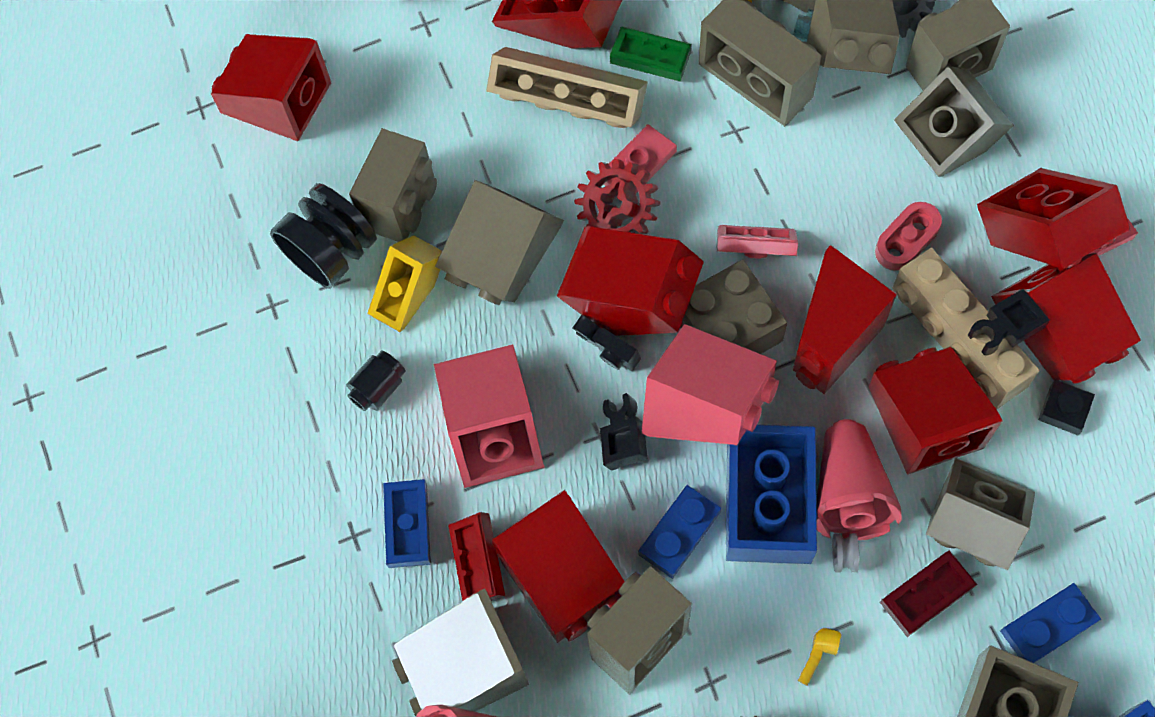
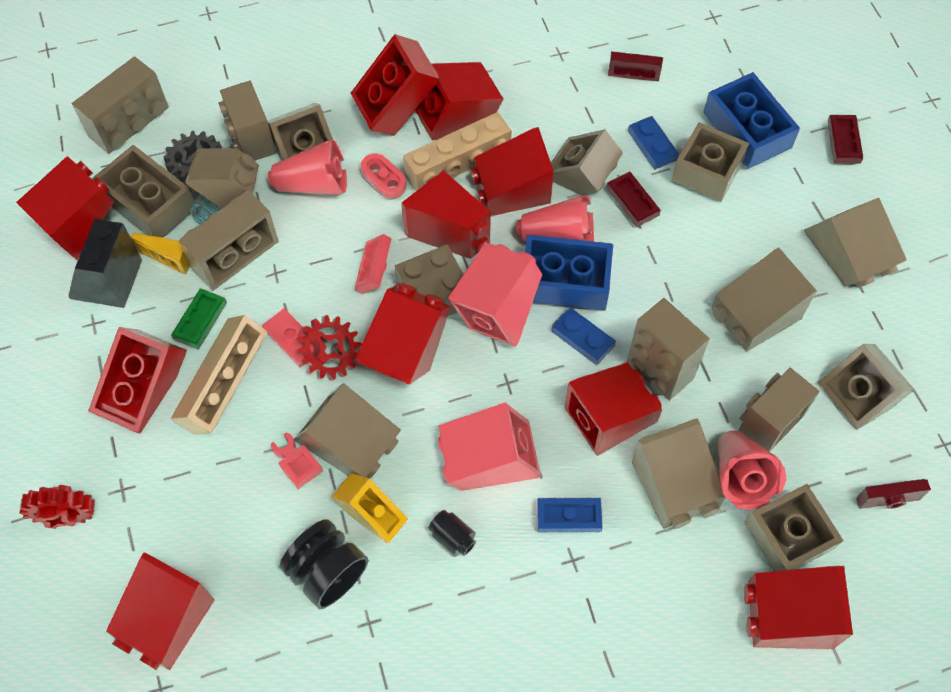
camera: 90 degrees left, 5 degrees down
(394, 185) = (285, 502): dark tan brick -> none
(453, 192) = (297, 464): none -> coral plate
(476, 556) = (600, 466): red plate -> none
(614, 350) = (447, 361): black plate -> none
(623, 438) = (516, 362): black plate -> none
(824, 641) = (662, 261): yellow hand -> none
(845, 552) = (606, 235): light grey bush -> none
(893, 145) = (311, 171): none -> coral cone
(1011, 319) = (468, 115): black plate -> none
(1066, 407) = (515, 112): black plate -> none

